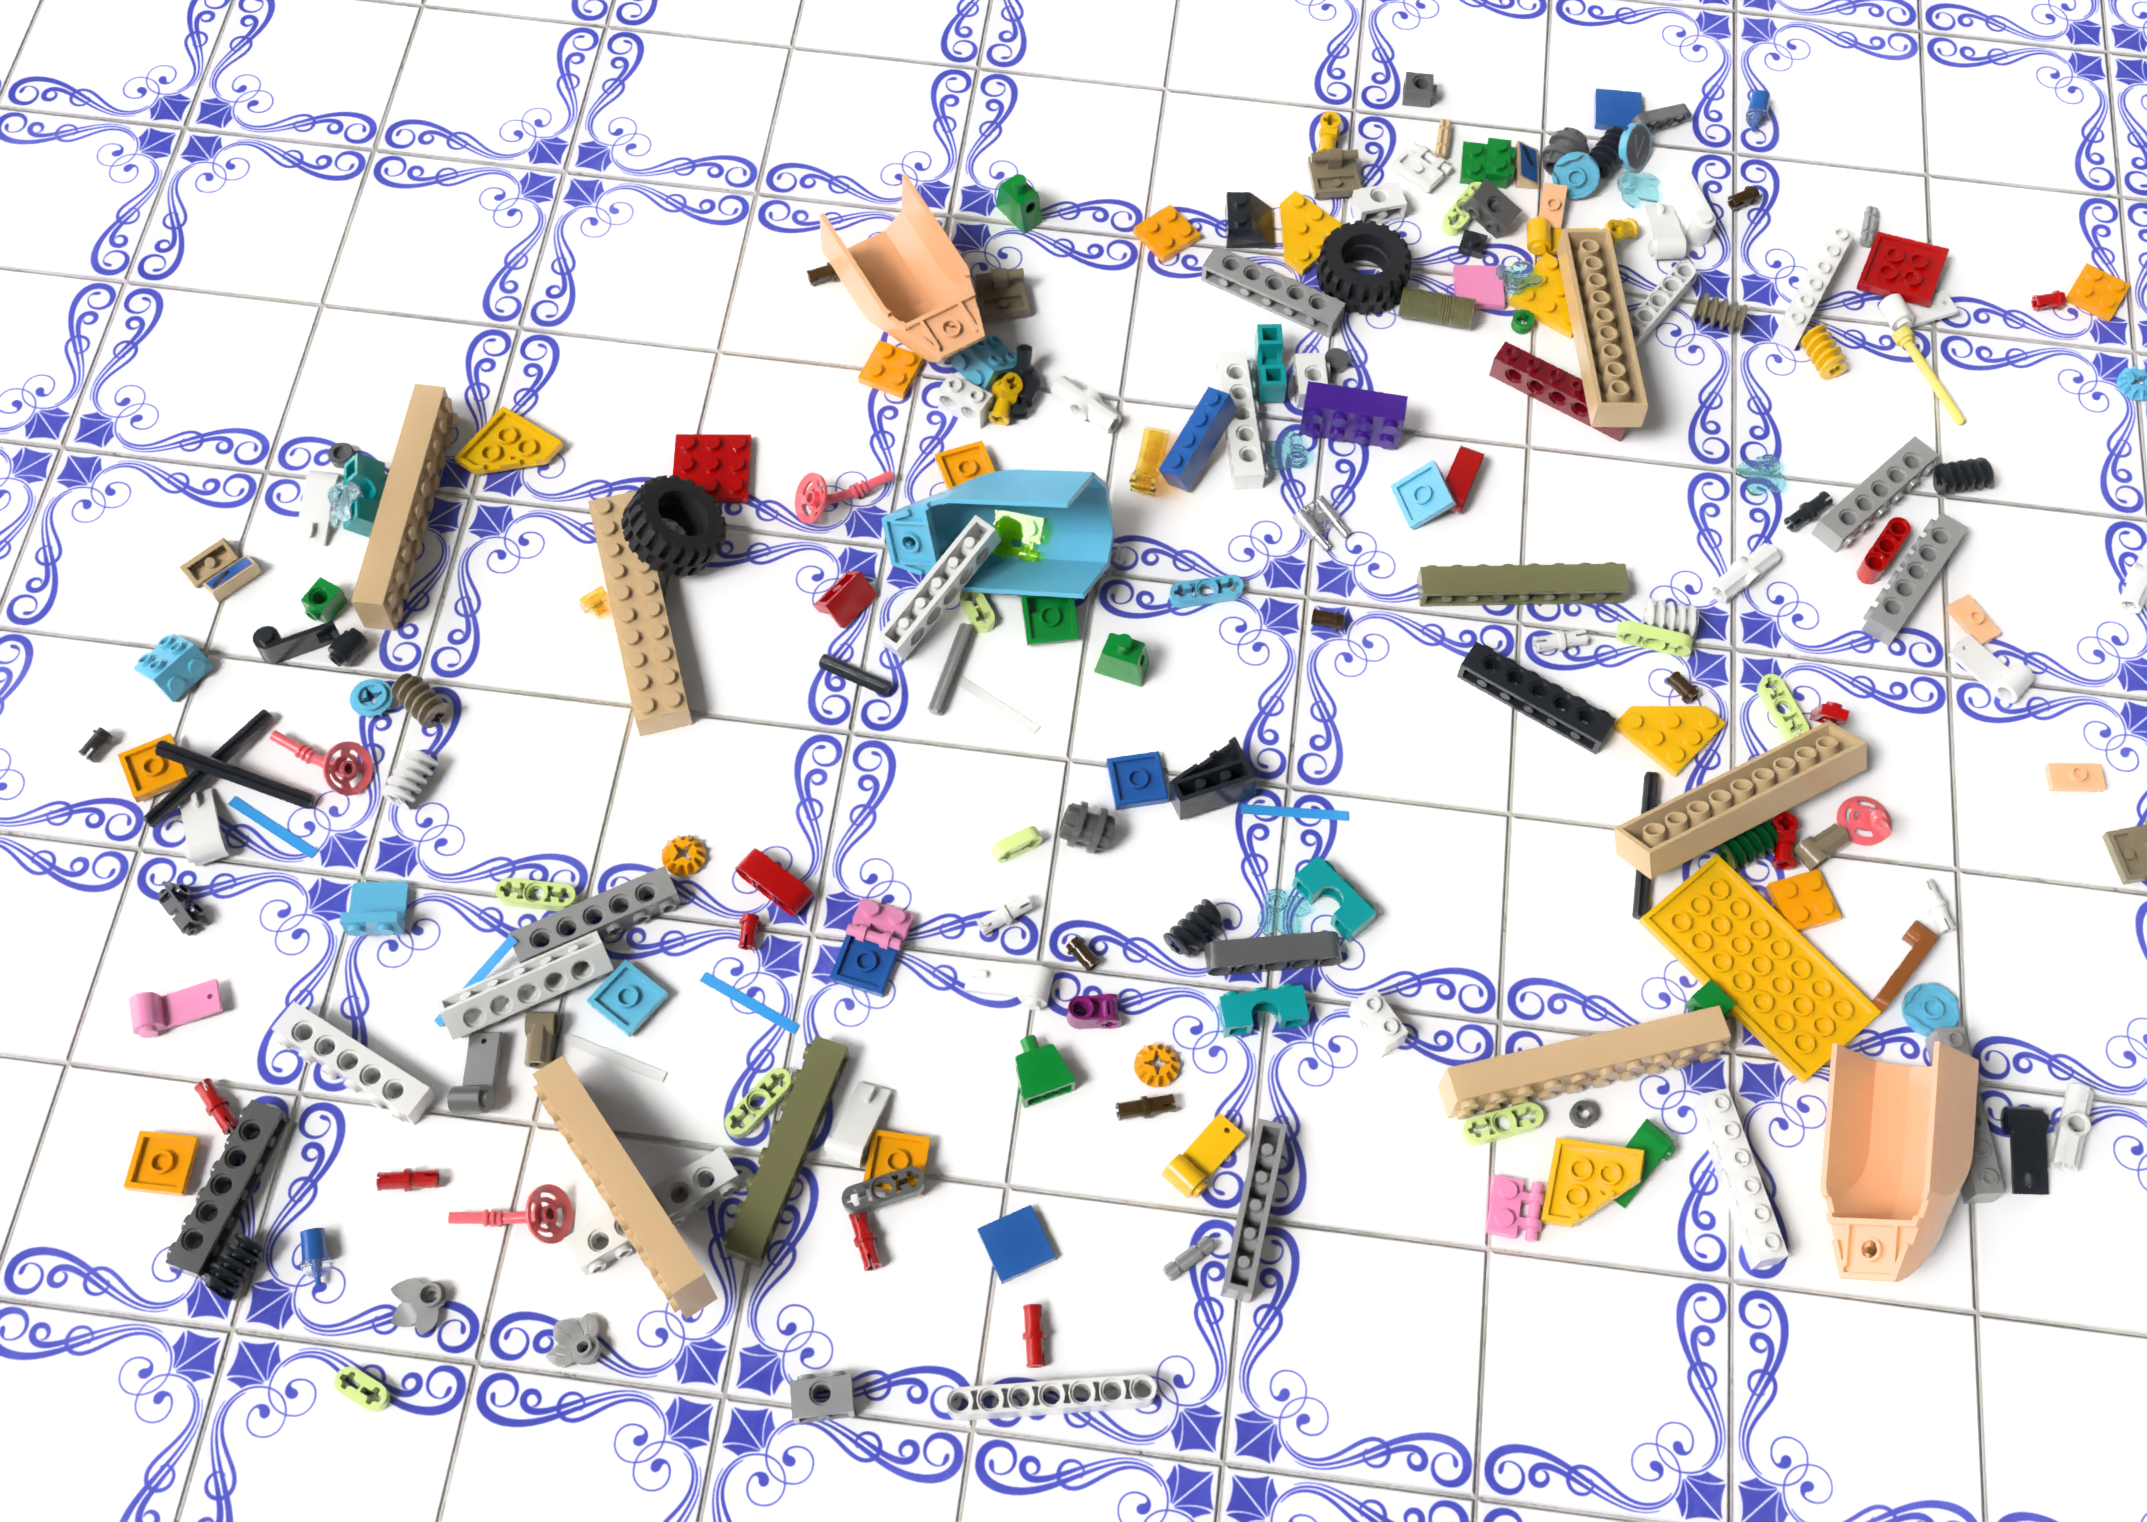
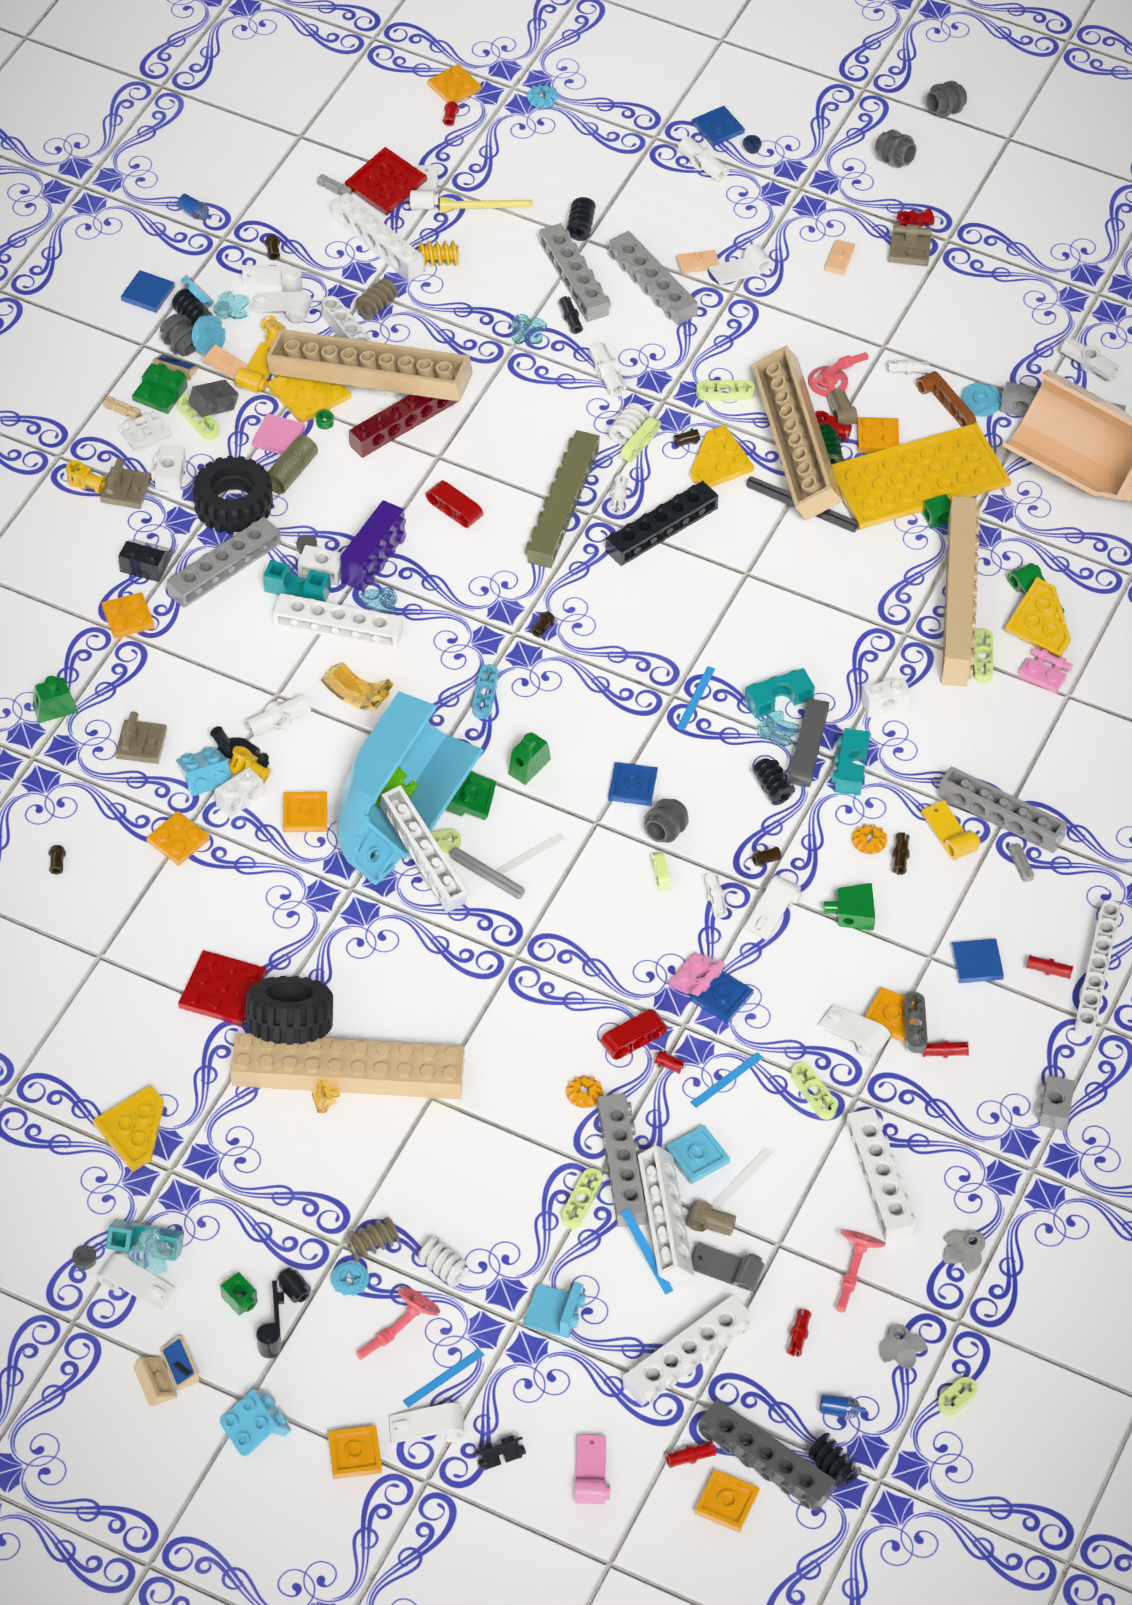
camera: 70 degrees left, 10 degrees down
(97, 743) = (312, 1494): black pin -> none
(198, 777) = (372, 1409): black axle -> none
(234, 774) = (393, 1383): black axle -> none
(404, 508) = (173, 1207): tan brick -> none
(623, 1189) = (866, 1169): tan brick -> none
(786, 1152) = (860, 1078): olive brick -> none
(818, 499) = (292, 912): coral dish -> none
(846, 598) = (391, 924): red panel -> none
(855, 674) = (466, 937): black axle -> none
(910, 280) = (118, 780): light nougat windscreen -> none
(1096, 1010) = (816, 863): magenta piece -> none
(1198, 439) = (353, 646): blue brick -> none
(1214, 782) = (658, 730): black wedge -> none
(1303, 231) = (171, 524): yellow plate -> none
(1319, 518) = (451, 602): clear piece -> none
(1418, 89) = (65, 405): dark grey brick -> none
(1423, 495) = (462, 528): plate -> none
(1472, 244) = (234, 424): black plate -> none
(1518, 276) = (286, 404): clear light blue plate -> none
(1583, 1105) = (991, 604): dark grey bush -> none
(1664, 117) = (175, 265): dark grey beam -> none
(1740, 1179) = (1067, 540): white brick -> none
(1829, 712) = (746, 362): red plate -> none
(1883, 550) = (623, 285): red beam -> none
(2027, 1148) = (1098, 385): black door -> none

